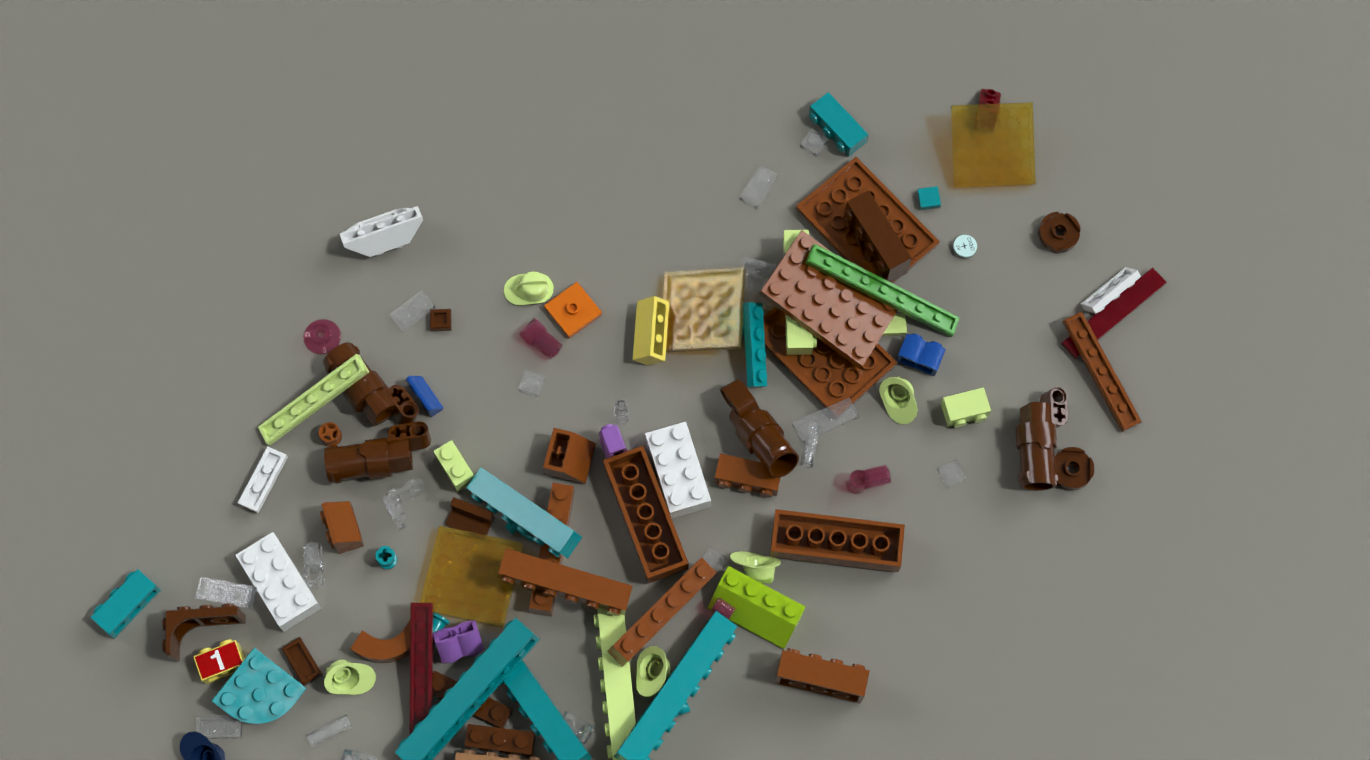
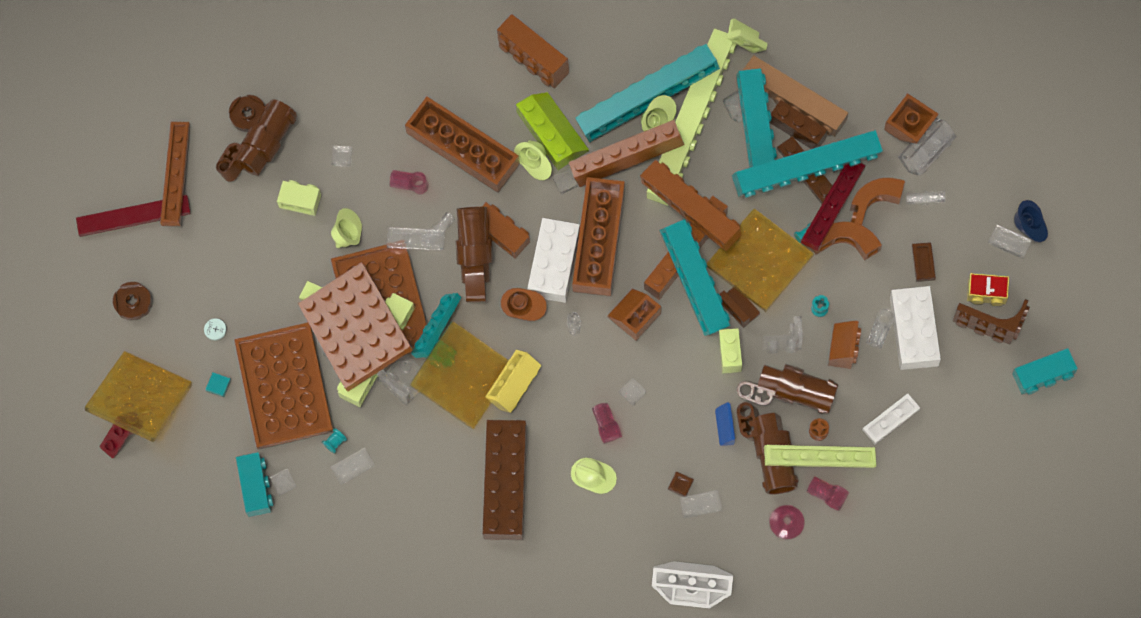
camera: 145 degrees left, 0 degrees up
(226, 592) = (960, 337): clear tile -> none
(258, 691) = (967, 249): teal plate -> none
(286, 377) = (832, 494): none -> clear pink piece
(349, 678) = (894, 230): yellowish green piece -> none
(386, 709) = (877, 190): none -> dark orange arch
(458, 641) = (789, 210): medium lavender brick -> none
(573, 310) = (566, 437): orange plate -> none
(608, 239) = (504, 480): none -> reddish brown brick
(611, 440) = (595, 301): medium lavender brick -> none
(683, 409) = (523, 304): none -> dark orange piece
(723, 608) = (578, 136): clear pink hinge -> none
(788, 198) = (334, 440): none -> teal bush
(876, 237) = (286, 357): reddish brown brick -> none
(882, 290) = (309, 314): bright green tile -> none
(921, 354) = (307, 256): blue brick -> none
(1110, 290) = (124, 232): white plate -> none

